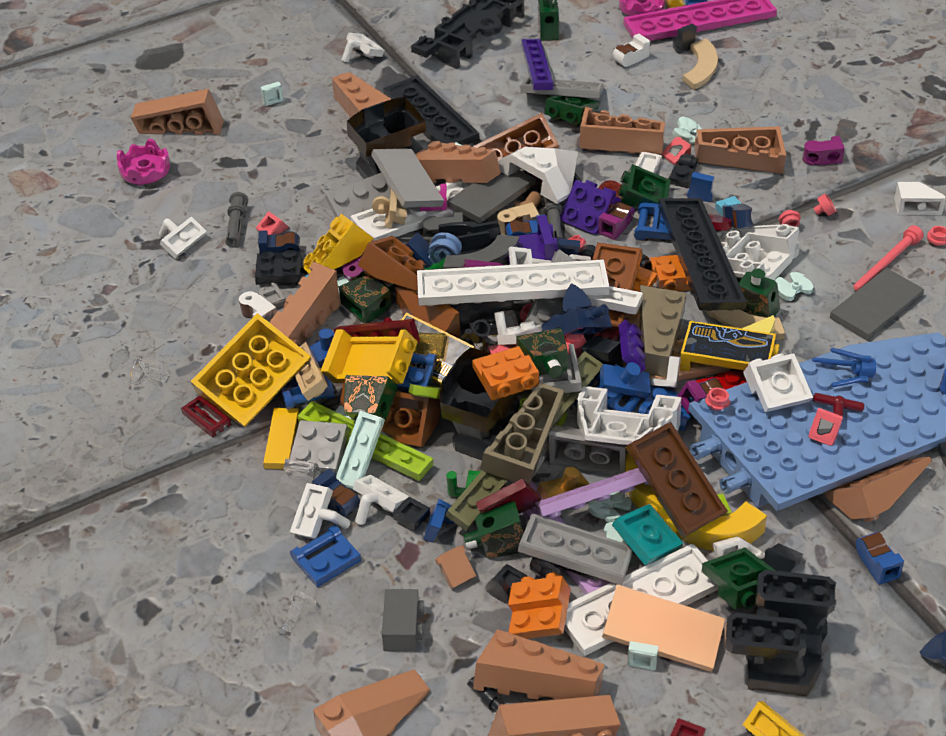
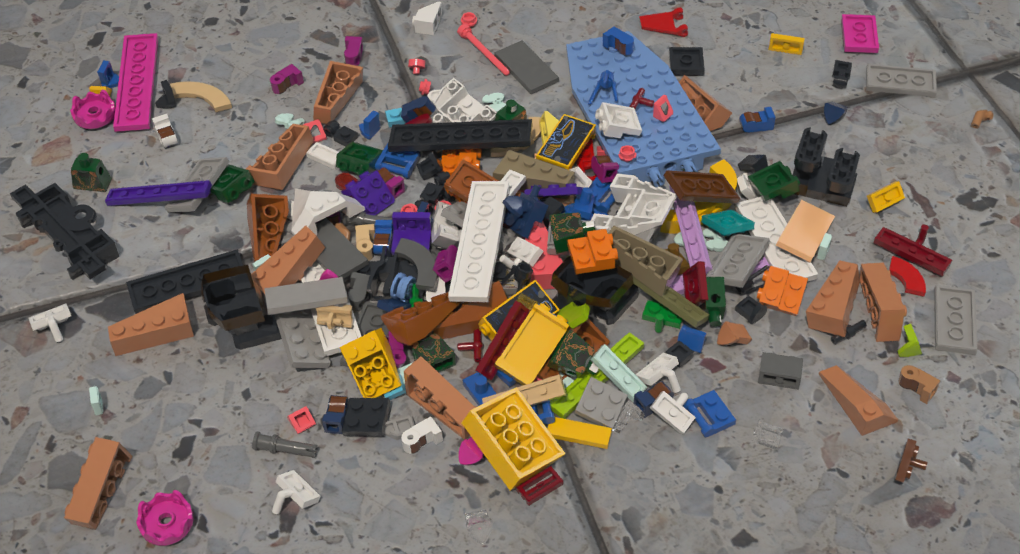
camera: 80 degrees left, 5 degrees up
(656, 245) = (429, 166): none -> black tile
(751, 111) = (286, 78): none -> magenta leg

